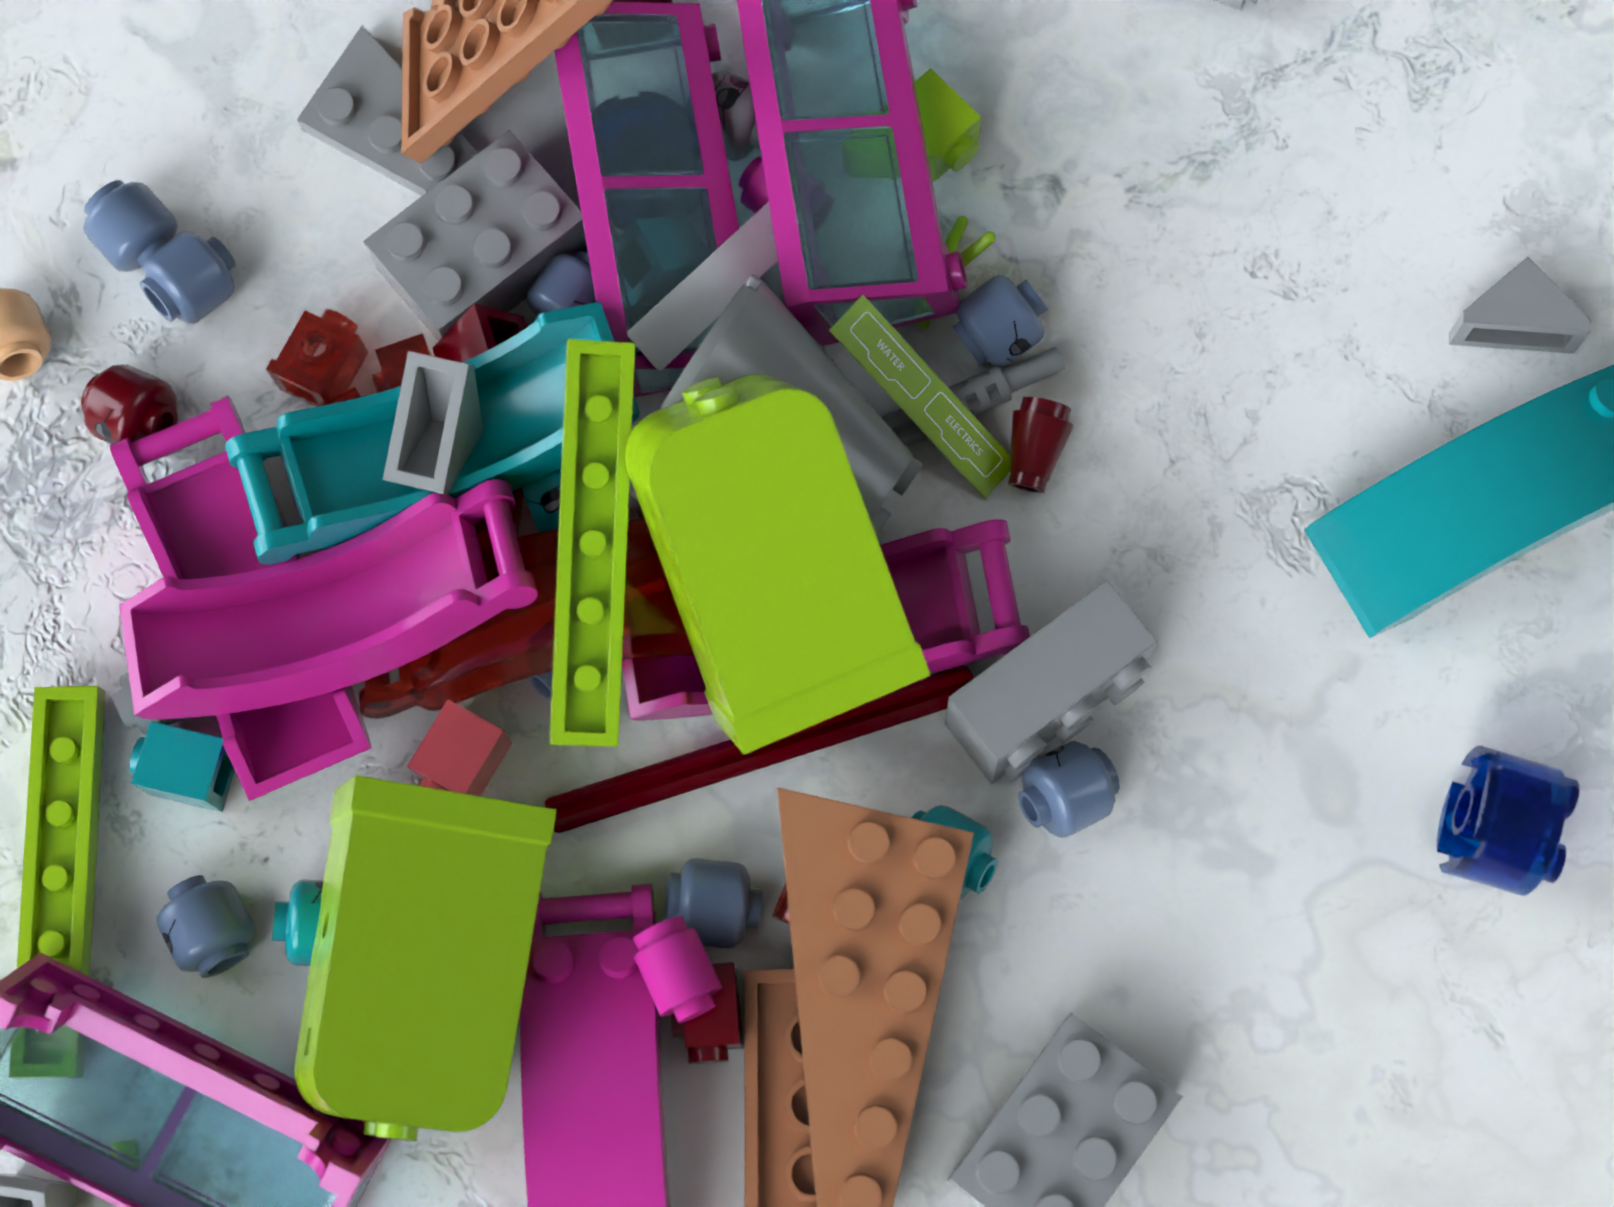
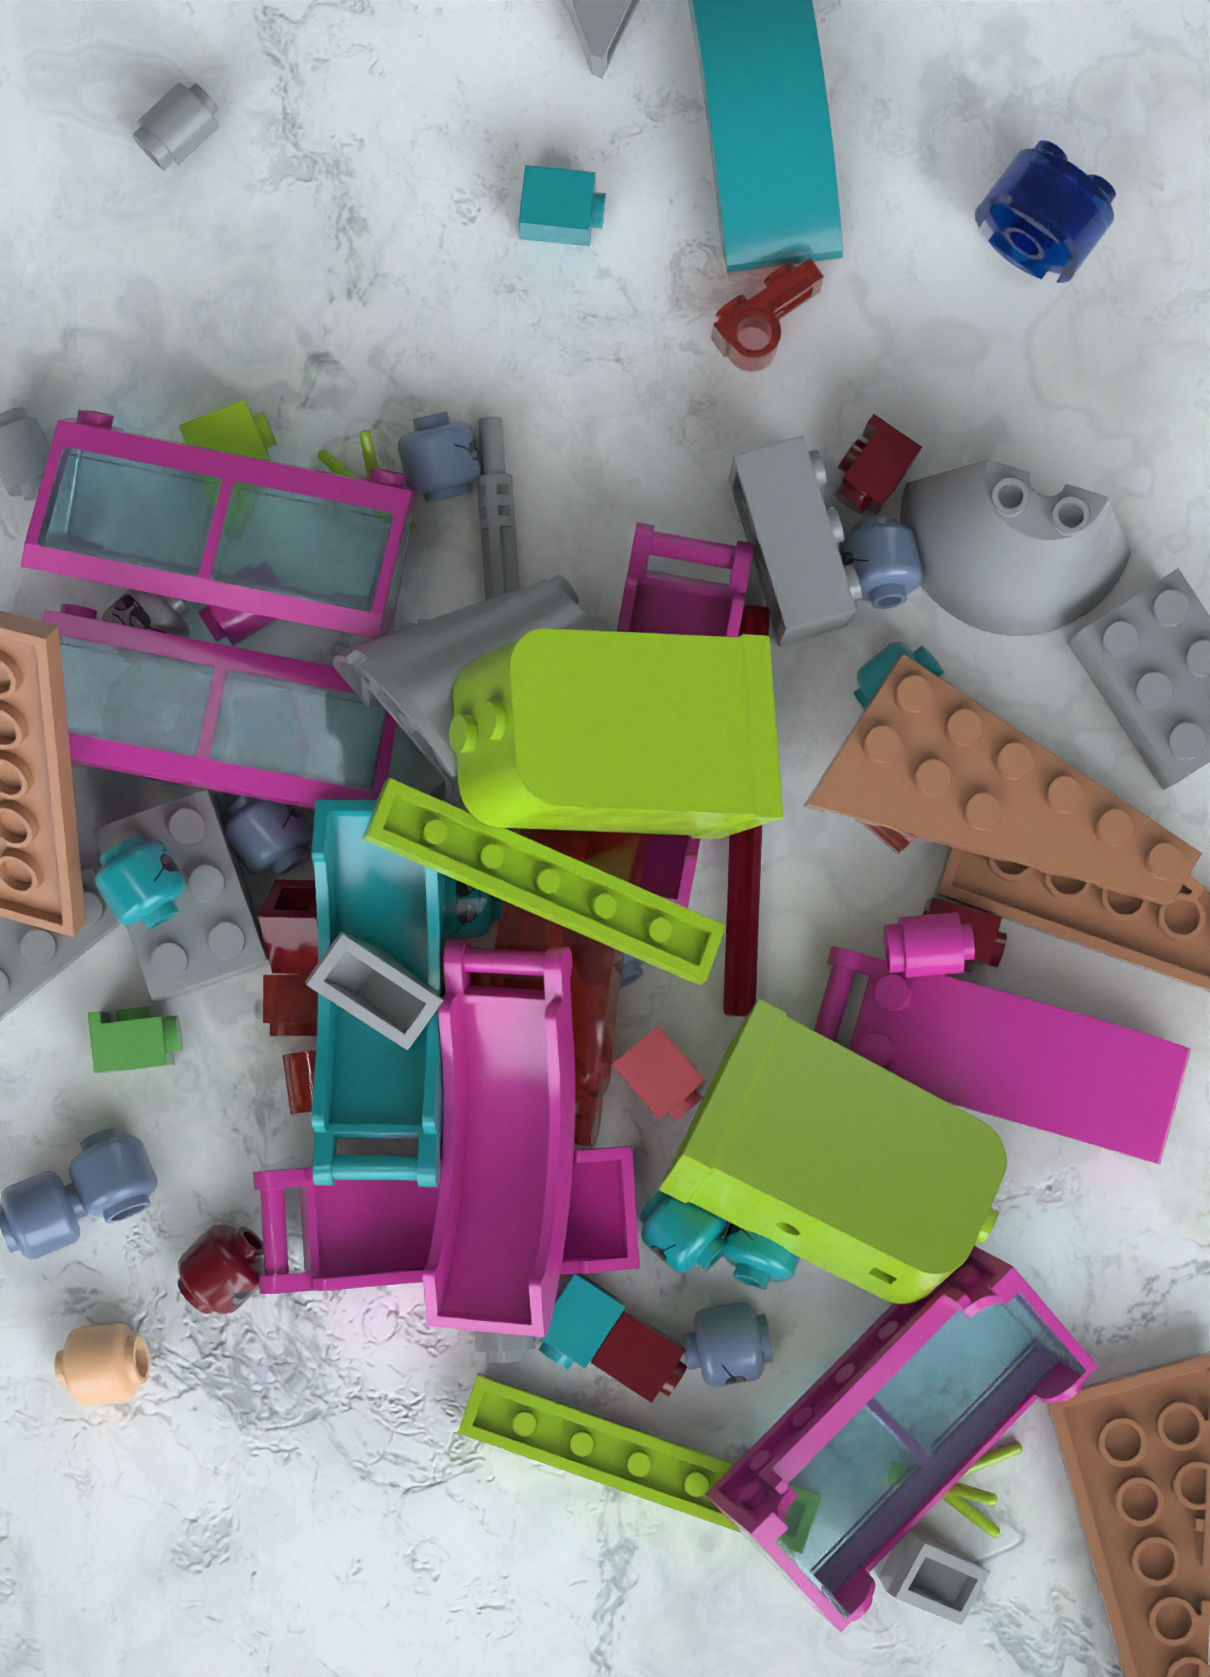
camera: 75 degrees left, 10 degrees up
(165, 838) = (641, 1357): none -> dark red brick
(300, 836) = (682, 1233): none -> teal head
(321, 376) = (261, 1083): clear red brick -> none
(325, 247) = (134, 1040): none -> bright green brick
(466, 179) = (140, 882): none -> teal head
(706, 291) = (326, 699): white sticker -> none
(714, 900) = (868, 898): sand blue head -> none
(922, 395) = (490, 551): lime sticker -> none
(1037, 442) = (562, 469): dark red cone -> none
(1122, 925) = (1009, 555): none -> light grey cone
(1164, 748) = (875, 467): none -> dark red brick
(1300, 342) = (560, 205): none -> teal brick
(1305, 591) = (785, 291): none -> clear red plate

